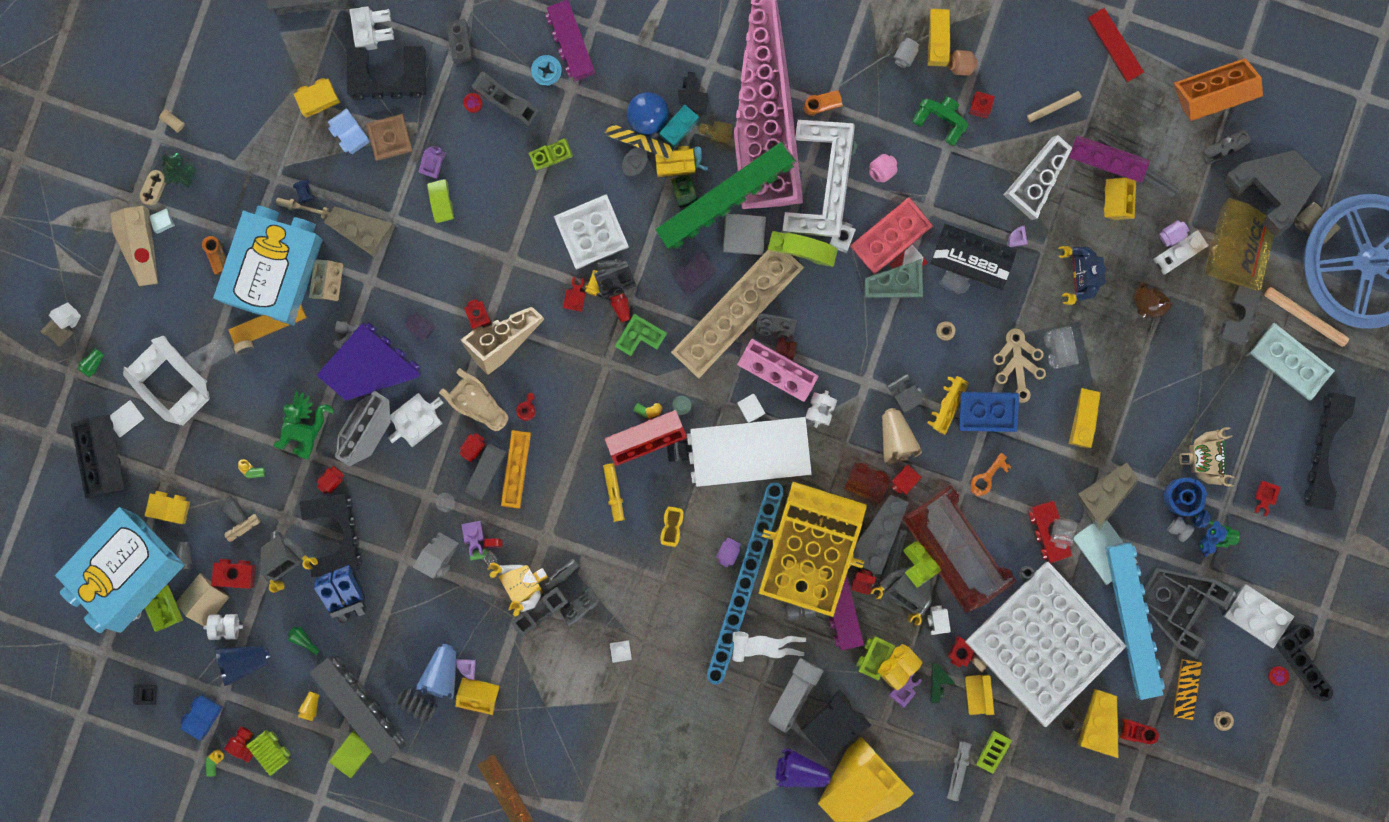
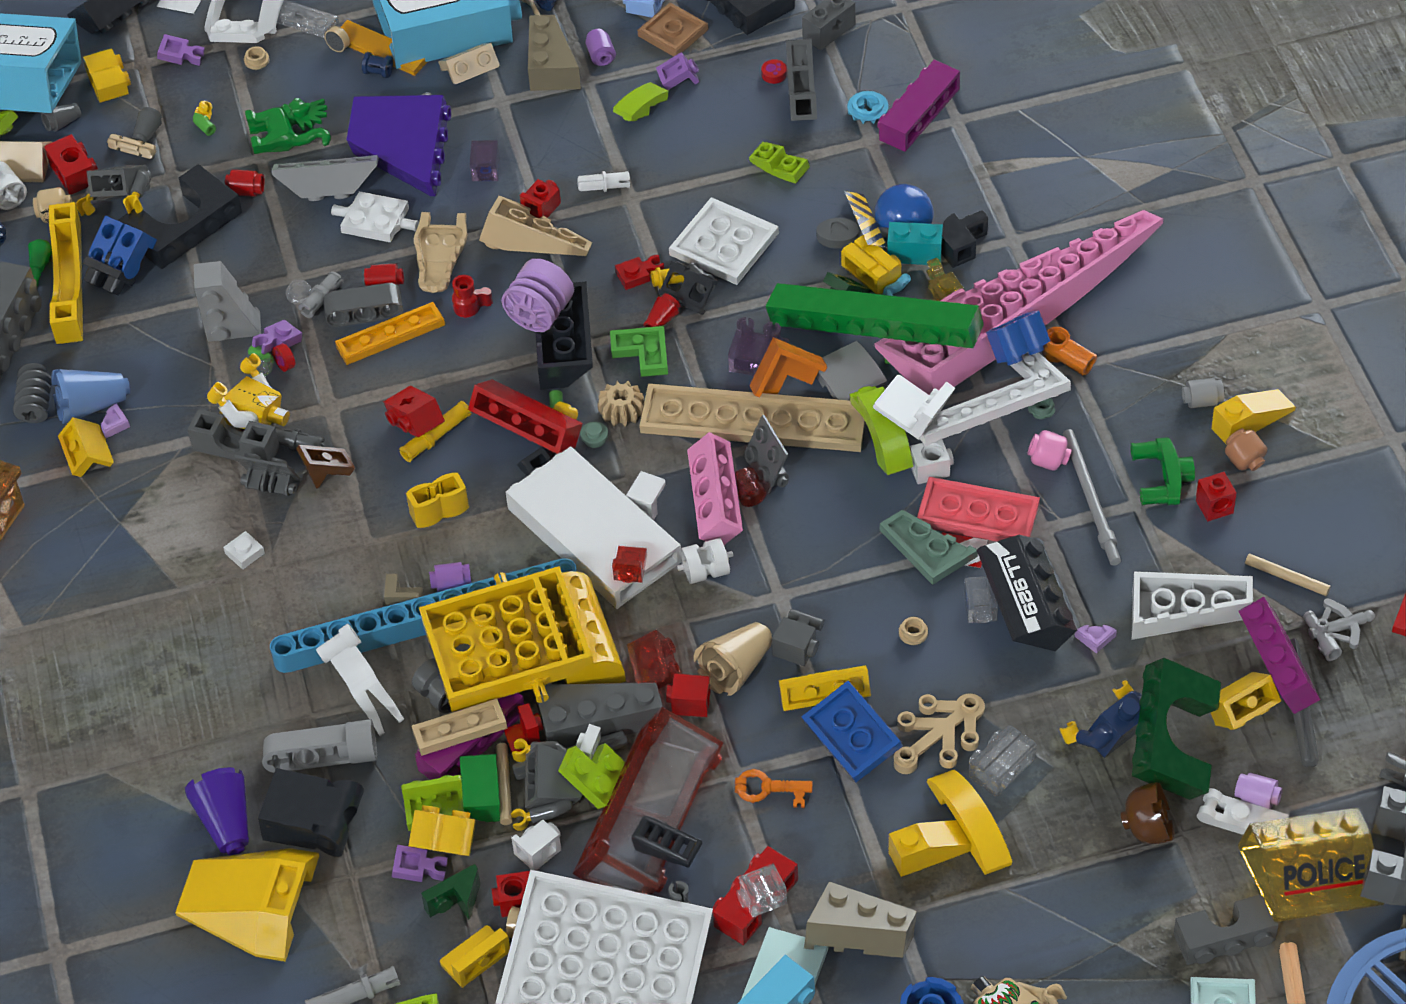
camera: 50 degrees right, 35 degrees down
(176, 451) = (178, 49): none -> medium lavender plate
(215, 406) = (256, 58): none -> tan plate
(263, 606) = (49, 197): none -> tan head
(286, 337) = (377, 65): none -> dark blue bush
(348, 640) = (66, 302): none -> yellow arch
(375, 193) = (600, 47): none -> medium lavender brick
(457, 491) = (315, 299): none -> light grey pin
(490, 267) = (603, 181): none -> white axle
(581, 381) = (537, 295): none -> lavender wheel
(595, 569) = (323, 461): none -> reddish brown slope
(597, 498) = (413, 411): none -> red brick
(600, 375) = (566, 347): none -> black slope
(667, 372) = (621, 403): none -> tan gear
(720, 269) = (784, 360): none -> orange panel
(721, 585) = (396, 594): none -> dark tan panel
(802, 455) = (629, 564): none -> clear red bracket
(803, 128) = (1018, 337): none -> blue brick
(819, 228) = (911, 406): none -> white bracket
(846, 618) = (459, 727): none -> tan plate
(883, 627) = (480, 787): none -> green brick
(884, 611) = (504, 783): none -> tan bar
(902, 556) = (588, 742): none -> white plate
(960, 182) = (1106, 536): none -> light grey bar
(977, 568) = (648, 833): none -> black slope
(1082, 388) = (974, 819): none -> yellow slope
(1100, 242) = (1155, 753): none -> dark green arch
(1102, 118) = (1326, 631): none -> light grey piece

